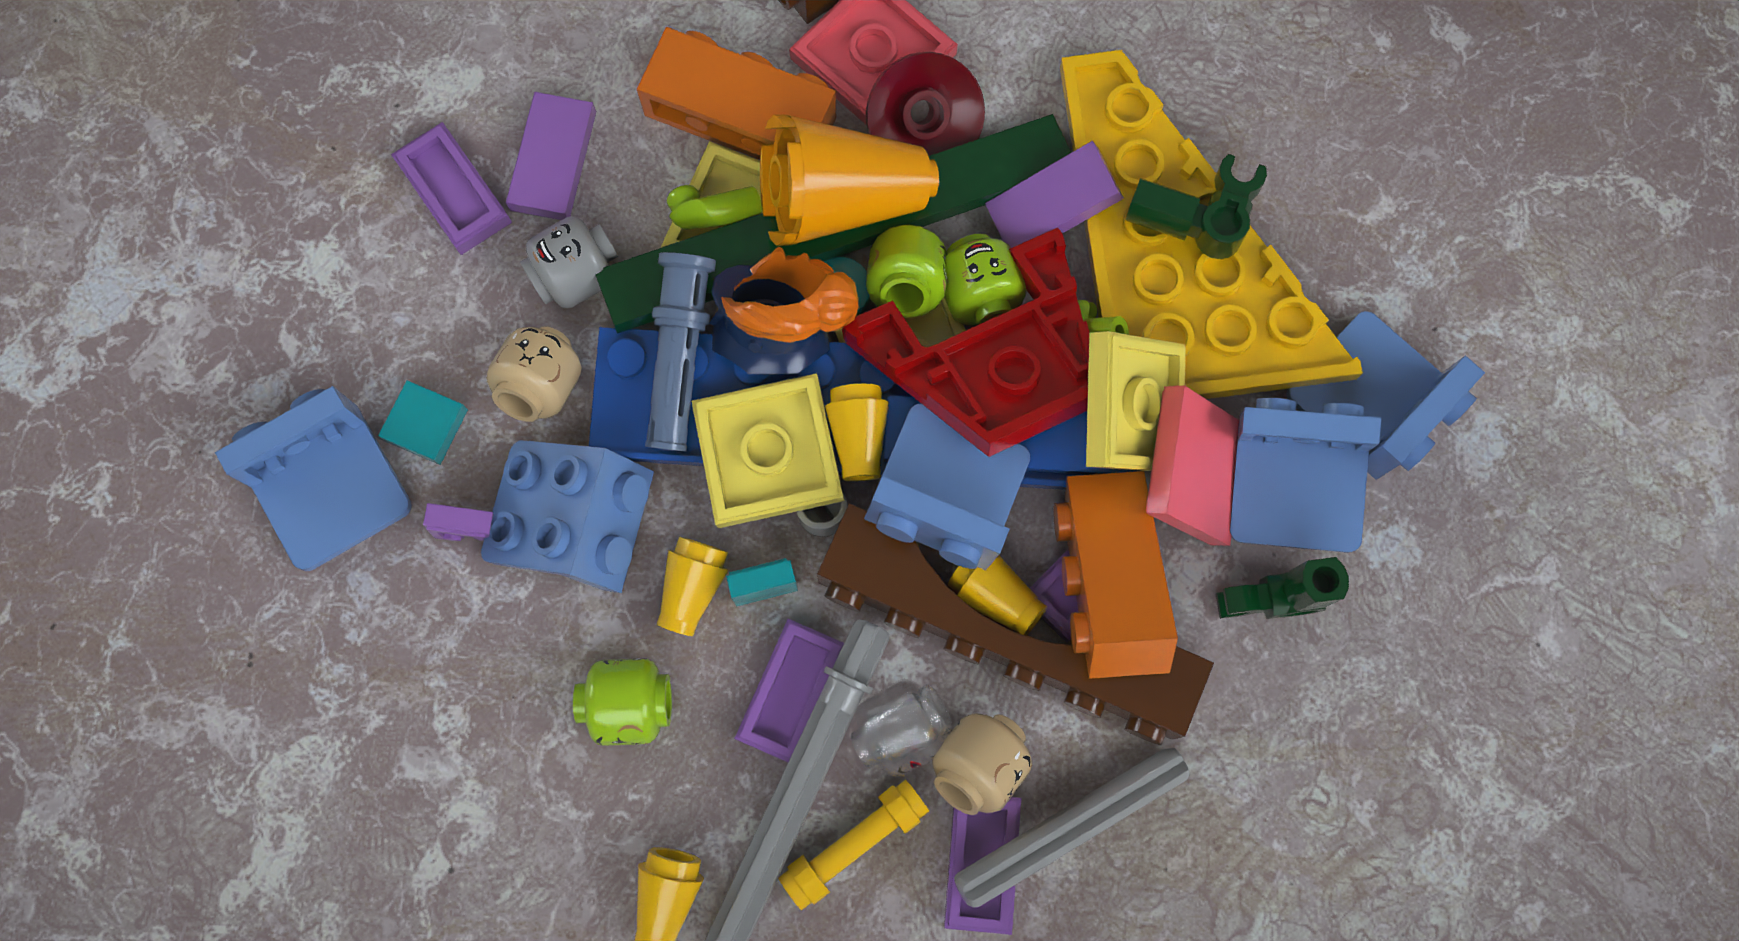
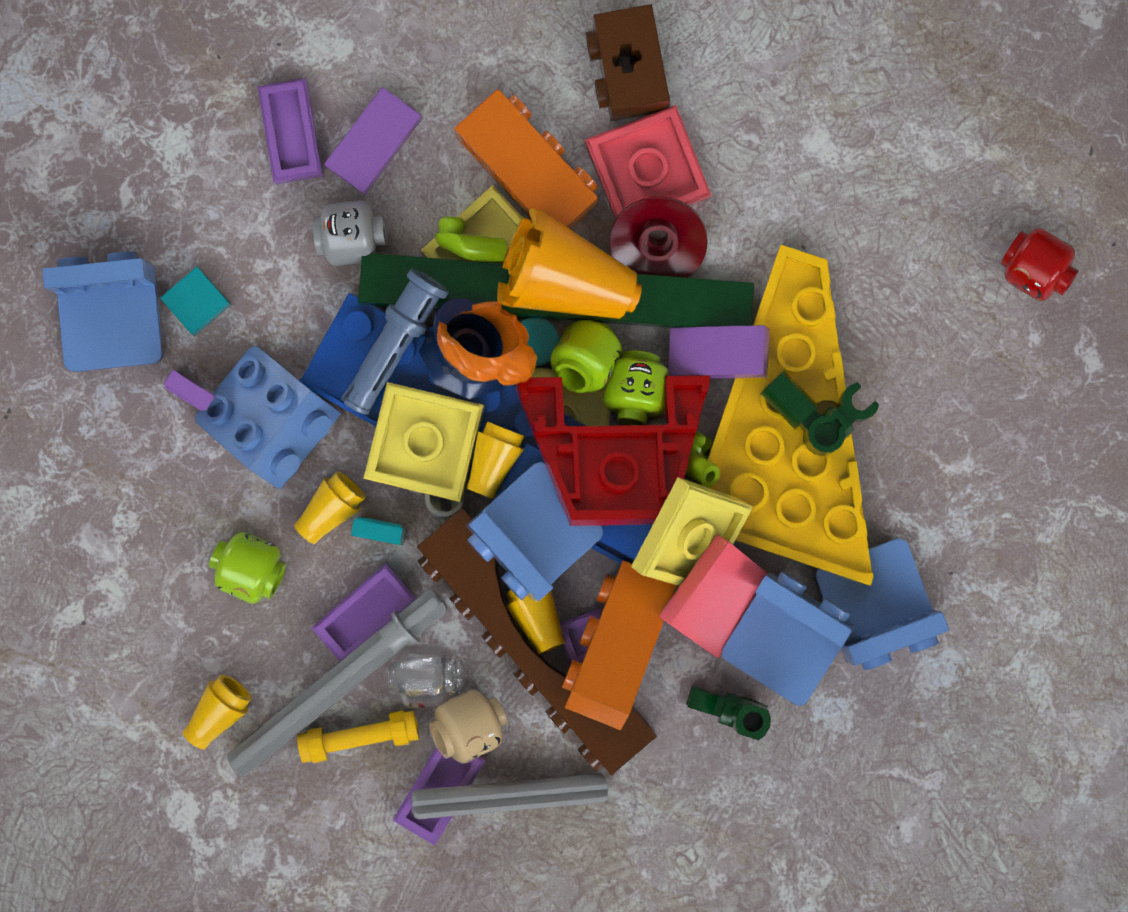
camera: 25 degrees right, 10 degrees up
(533, 373) = (287, 305): tan head -> none

